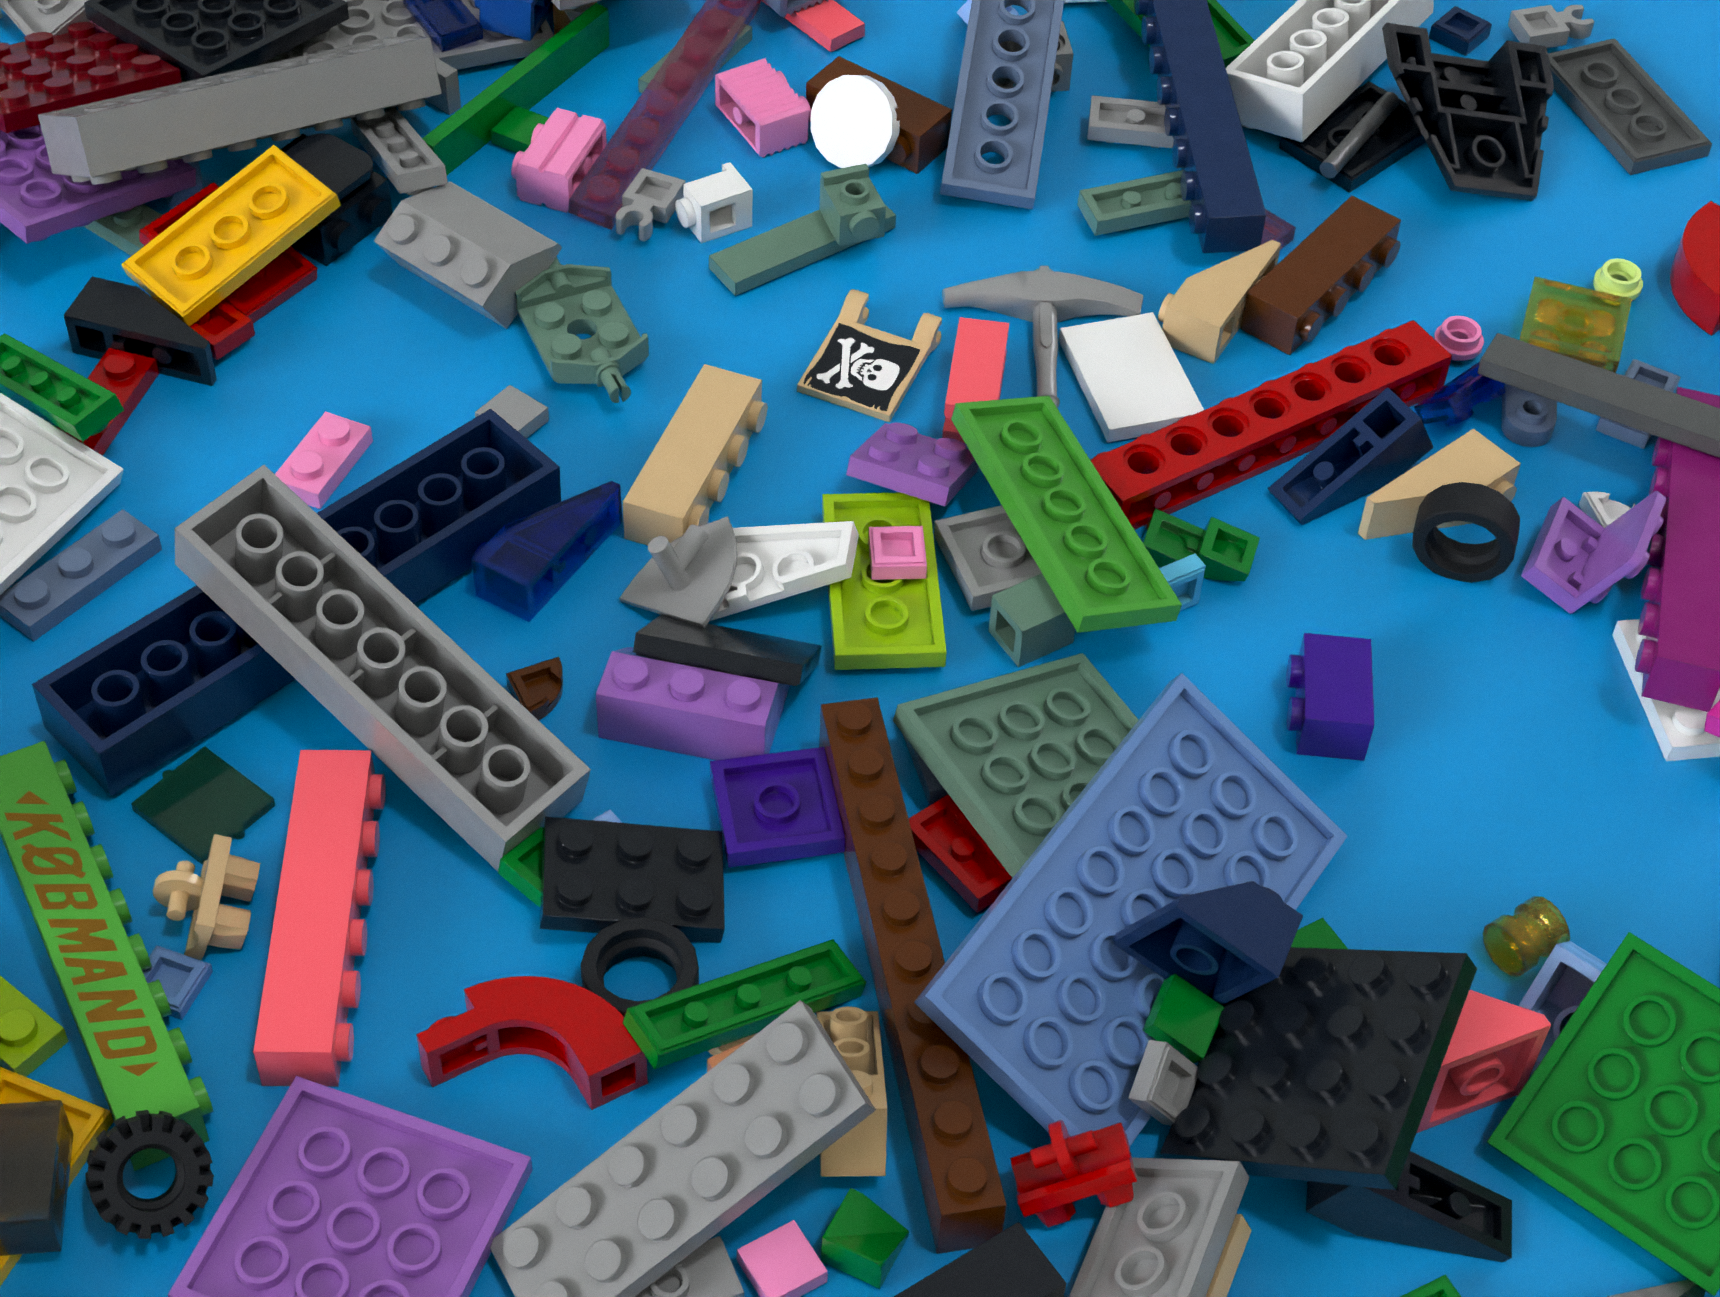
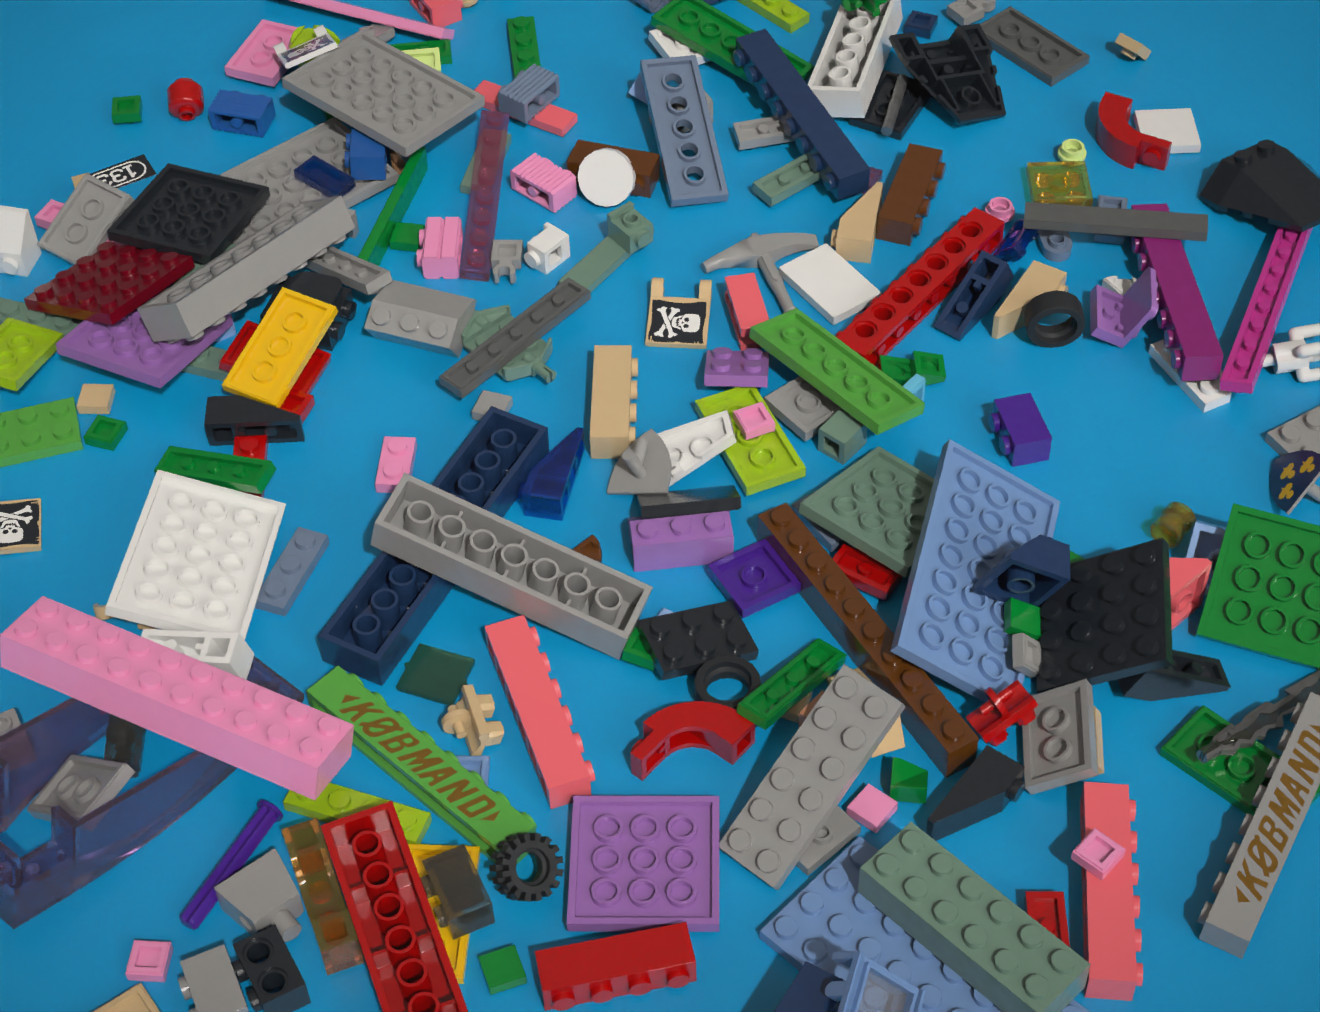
camera: 15 degrees left, 0 degrees up
(593, 319) = (514, 337): none -> dark grey tile

